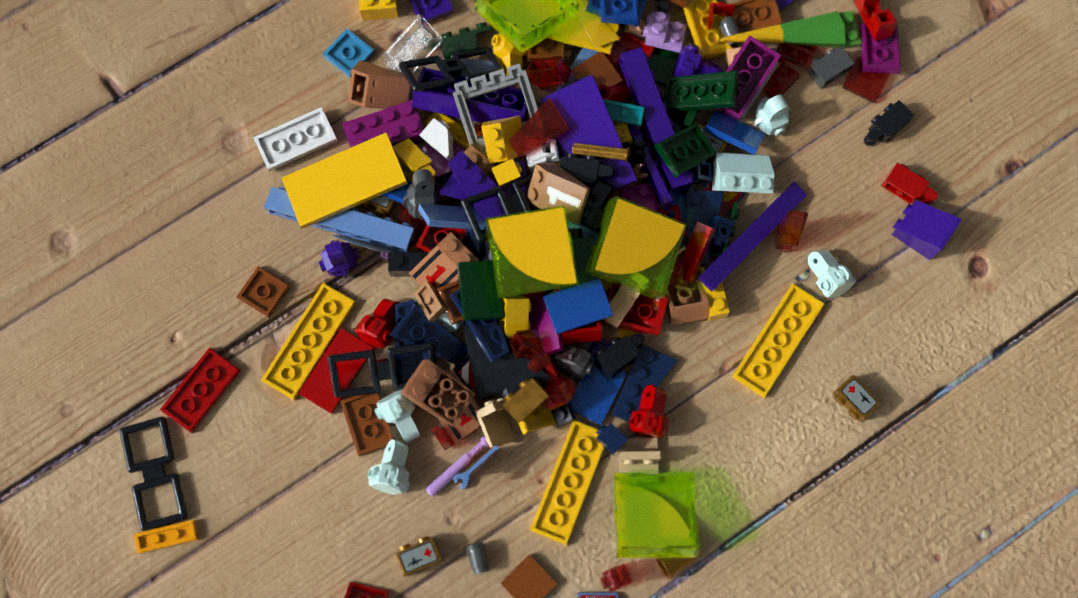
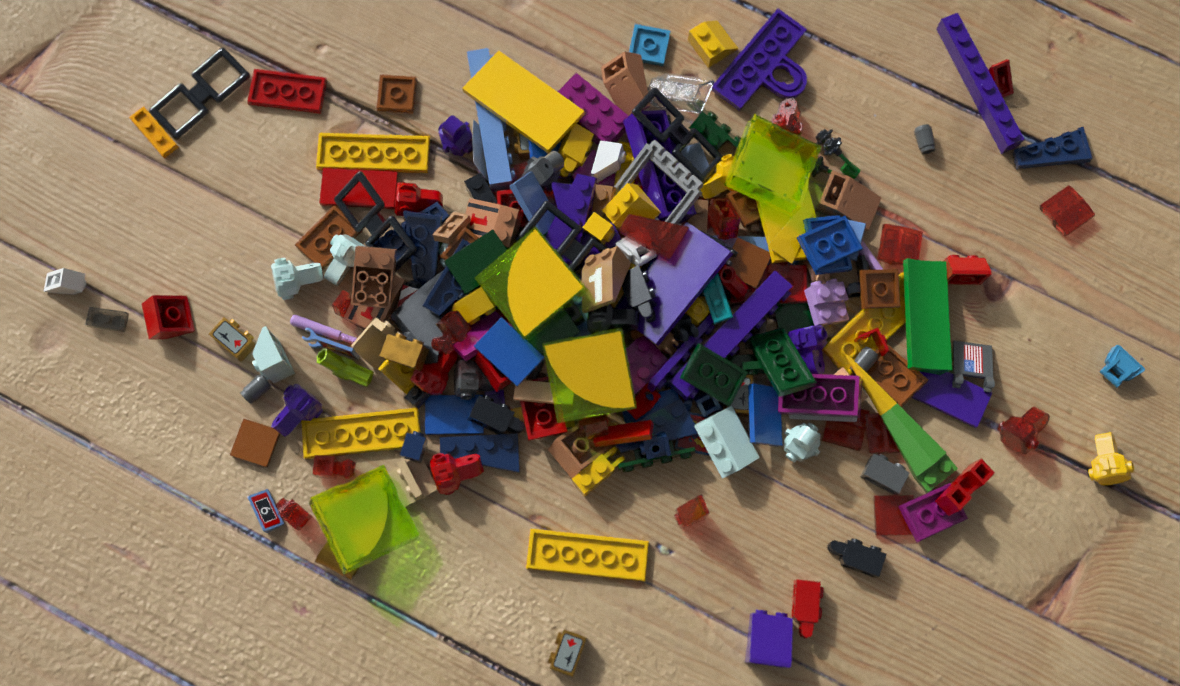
camera: 65 degrees right, 0 degrees up
(295, 139) = (544, 44): white plate -> none
(463, 525) = (271, 357): none -> light aqua slope
(503, 465) = (344, 367): none -> lime piece
(519, 525) = (299, 406): none -> dark purple piece
(590, 522) = (330, 468): none -> clear red brick
(601, 151) = (664, 299): pearl gold axle -> none
(752, 236) = (670, 480): dark purple tile -> none
(832, 277) = (672, 575): light aqua piece -> none

